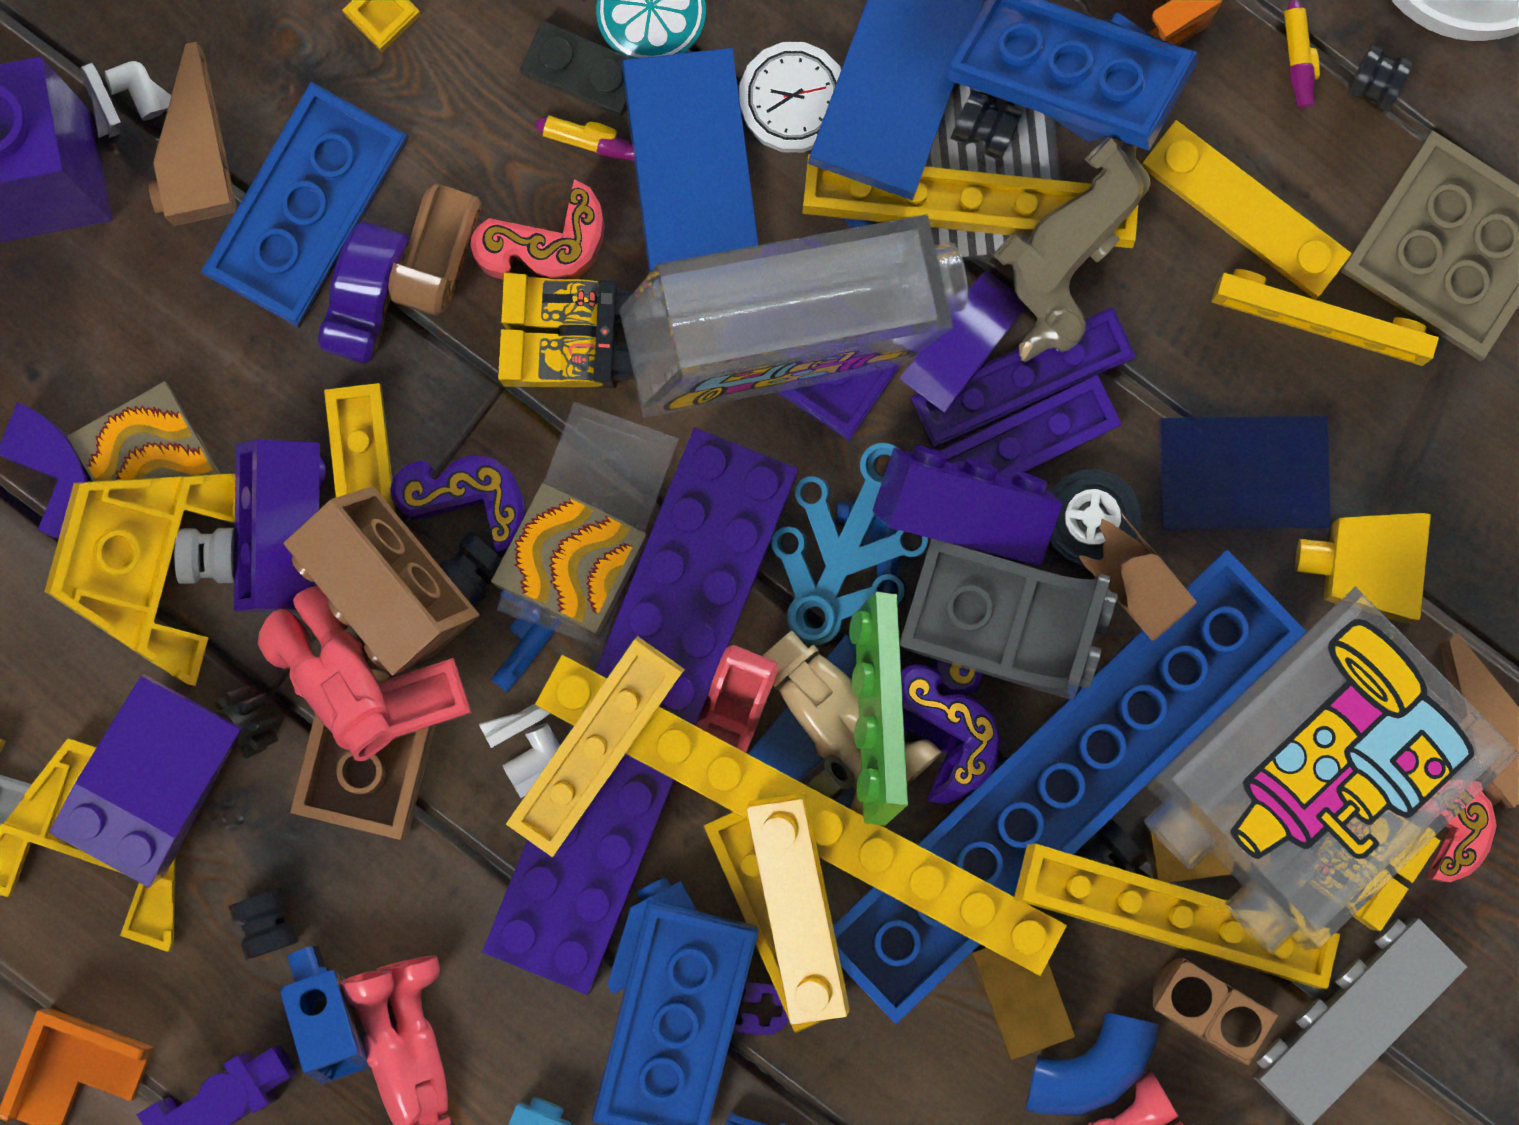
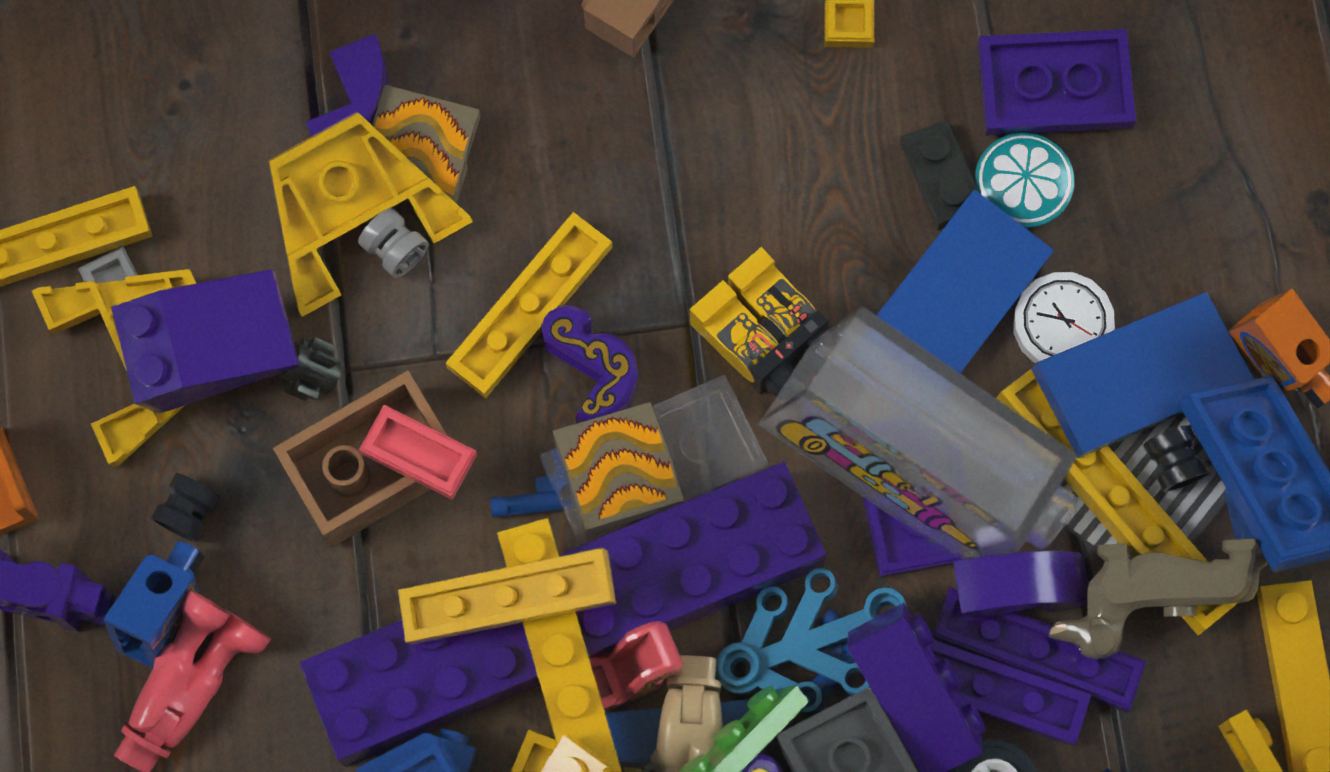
camera: 45 degrees right, 10 degrees down
(273, 498) = (455, 267): dark purple brick -> none
(304, 204) = (679, 91): blue tile -> none
(336, 683) = (390, 386): coral piece -> none
(360, 292) = (659, 173): dark purple animal -> none
(380, 580) = (481, 356): medium nougat brick -> none
(435, 250) = (732, 194): medium nougat animal -> none
(472, 568) = (547, 413): black wheel -> none
(528, 766) = (466, 536): white piece -> none
(542, 251) = (802, 263): coral animal -> none
(591, 137) = (905, 221): yellow piece -> none

